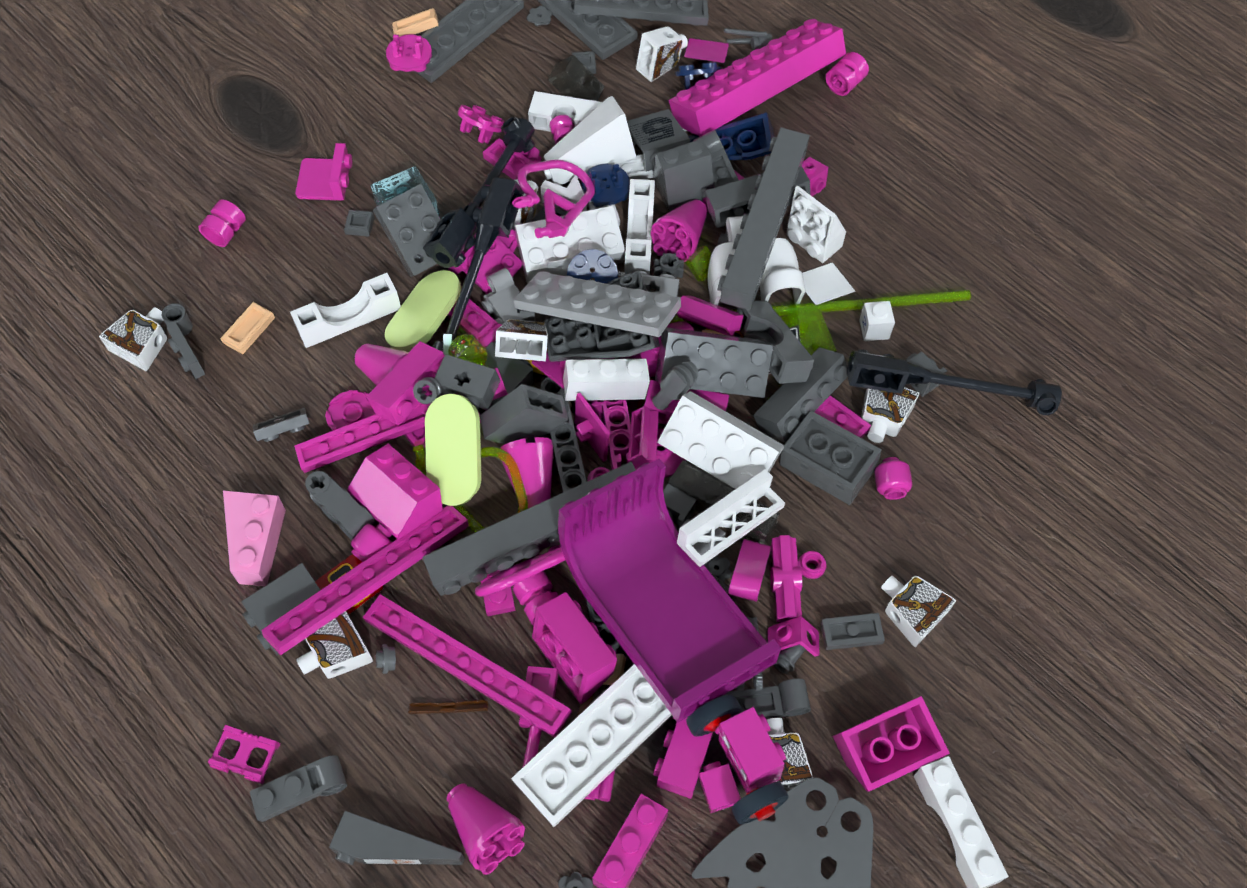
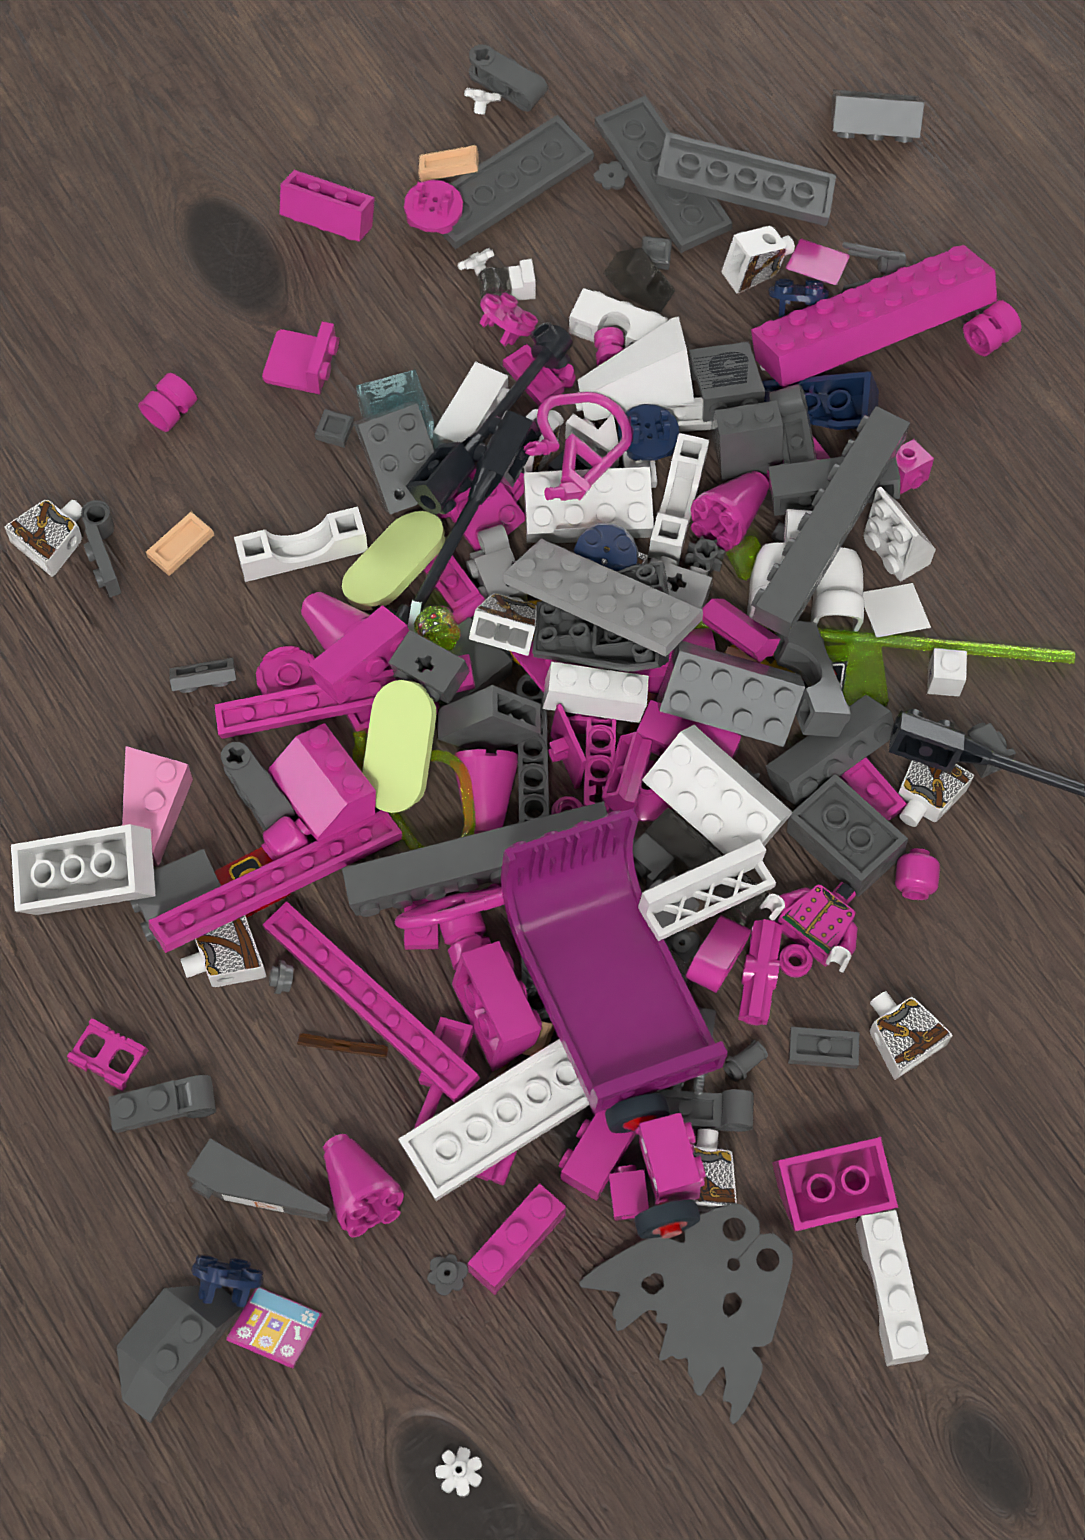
camera: 10 degrees right, 5 degrees up
(199, 598) = (83, 870): none -> white brick
(326, 65) = (326, 205): none -> dark pink brick
(419, 393) = (390, 669): dark grey bush -> none
(450, 88) = (476, 261): none -> white plant
(464, 184) = (471, 405): none -> white brick
(482, 95) = (514, 280): none -> leg
(675, 384) = (676, 715): dark grey arm -> none
(794, 633) = (753, 1037): dark pink bracket -> none
(824, 529) = (818, 921): none -> dark pink torso

